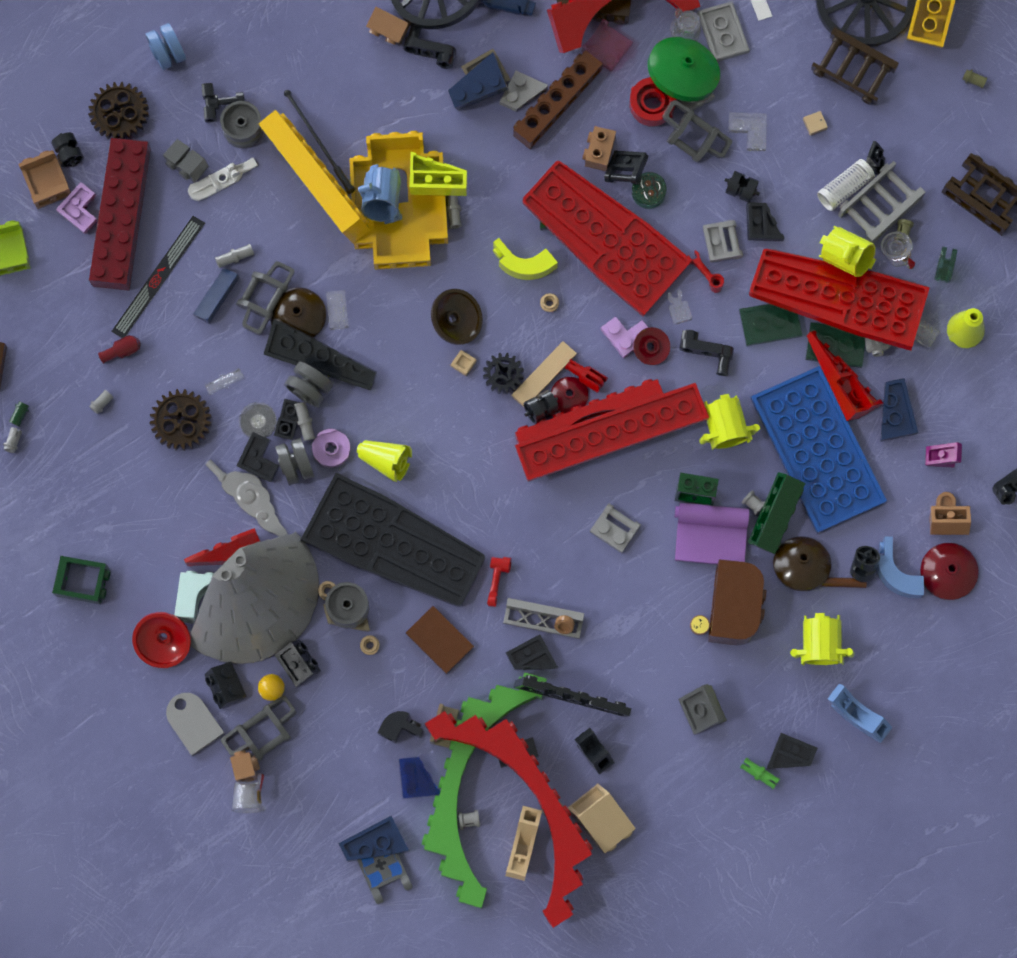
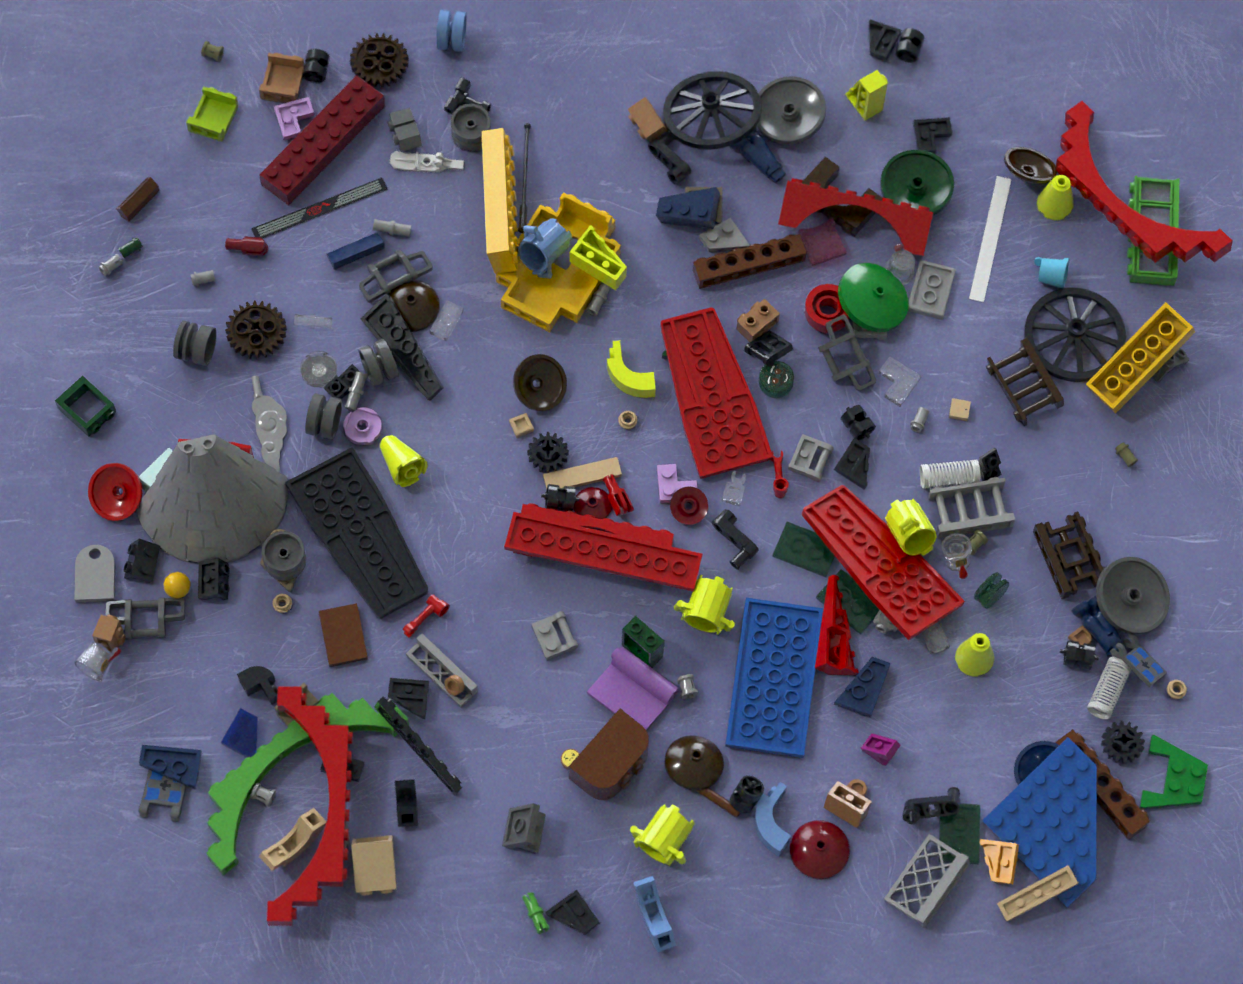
camera: 30 degrees right, 10 degrees down
(137, 465) = (194, 343): none -> dark grey wheel
(253, 460) = (292, 396): black plate -> none
(776, 513) = (699, 704): dark green brick -> none
(789, 152) = (917, 424): none -> light grey pin

